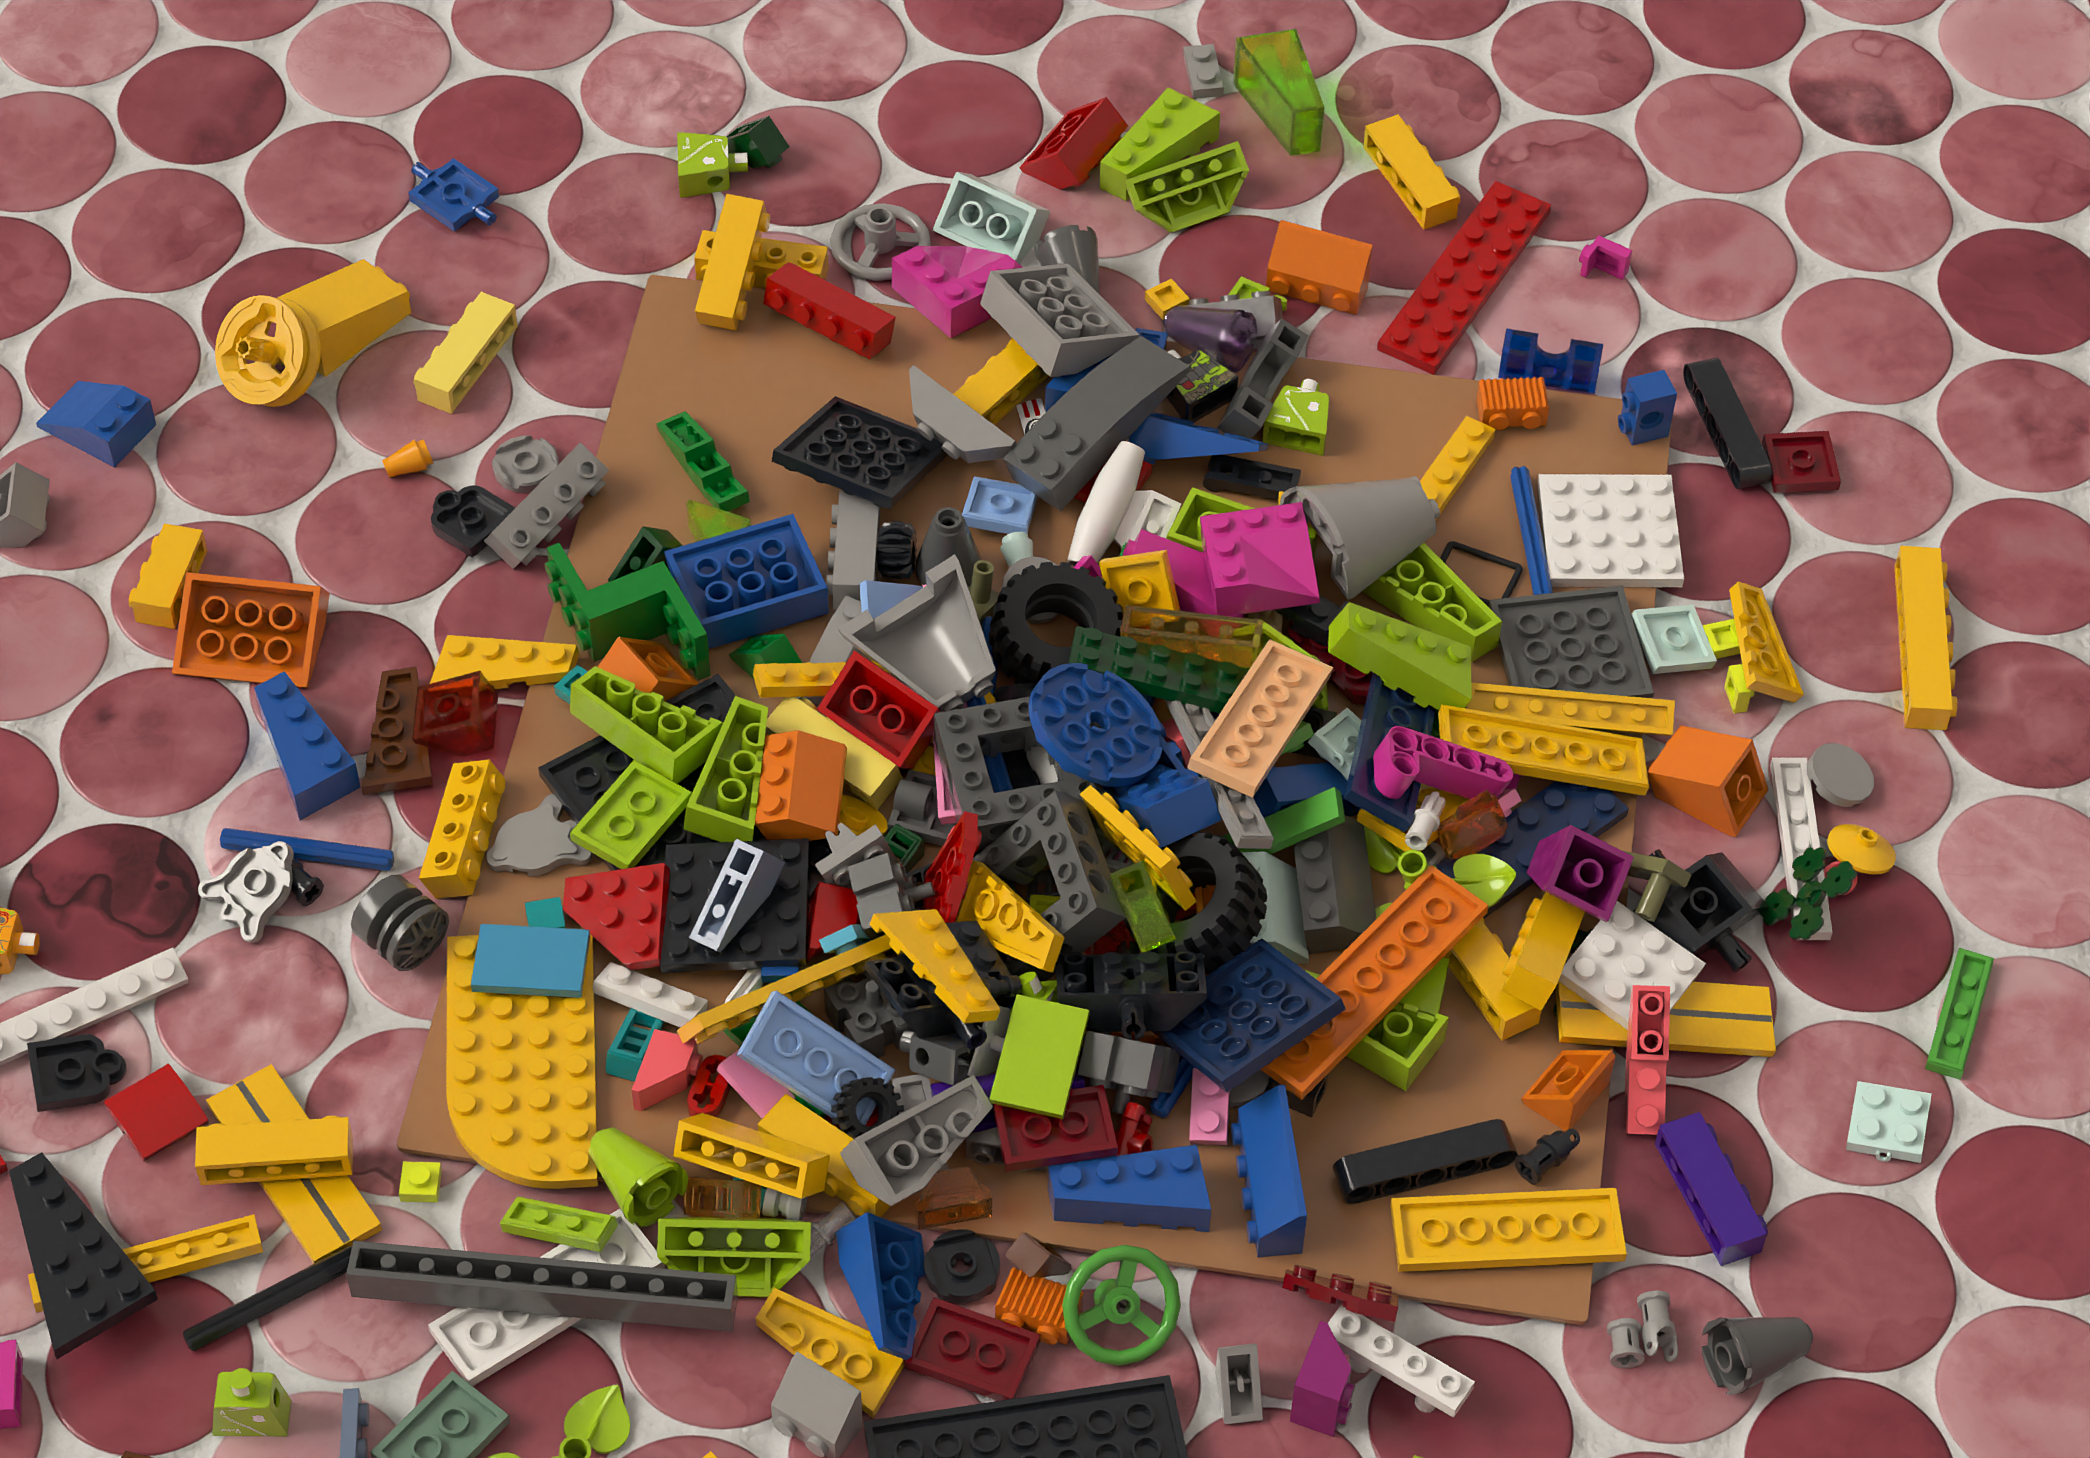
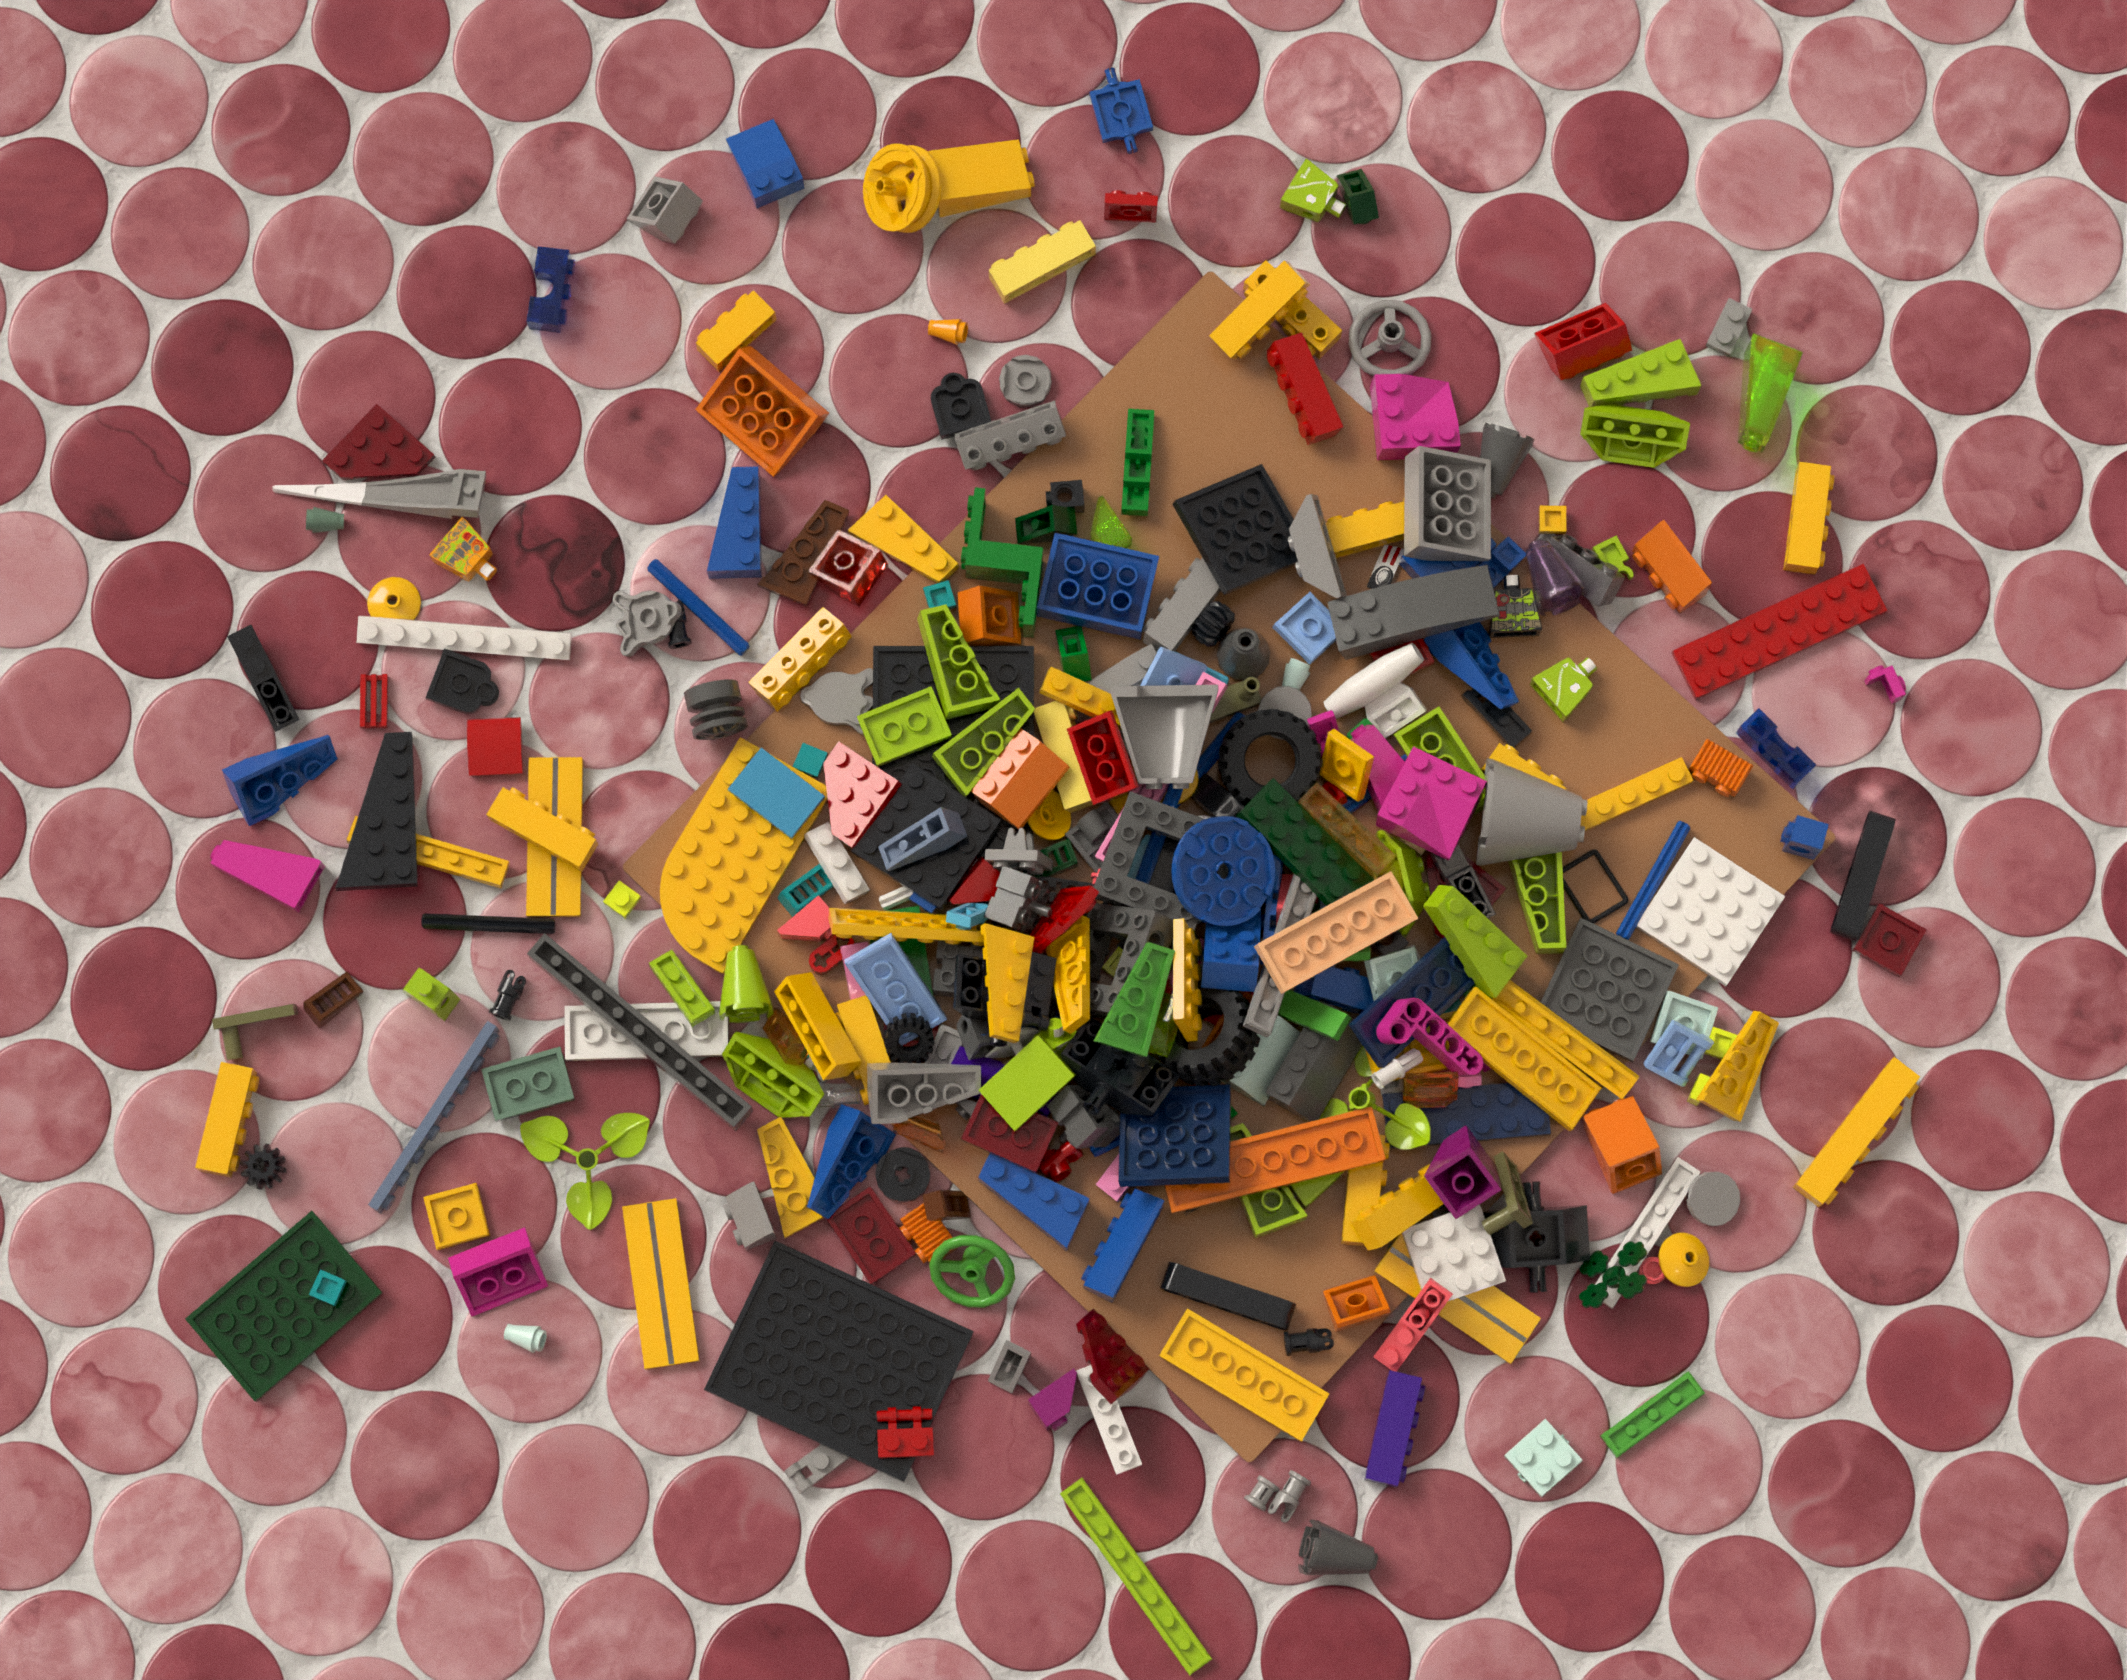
camera: 35 degrees right, 25 degrees up
(349, 1357) = (507, 995): none -> black piece
(527, 256) = (1130, 207): none -> red plate
(653, 515) = (1073, 487): none -> black brick
(990, 217) = (1478, 371): light aqua slope -> none
(1108, 890) = (1137, 1006): none -> bright green wing
(1270, 364) = (1575, 629): dark grey arch -> none
(1682, 662) = (1672, 1048): none -> light blue plate

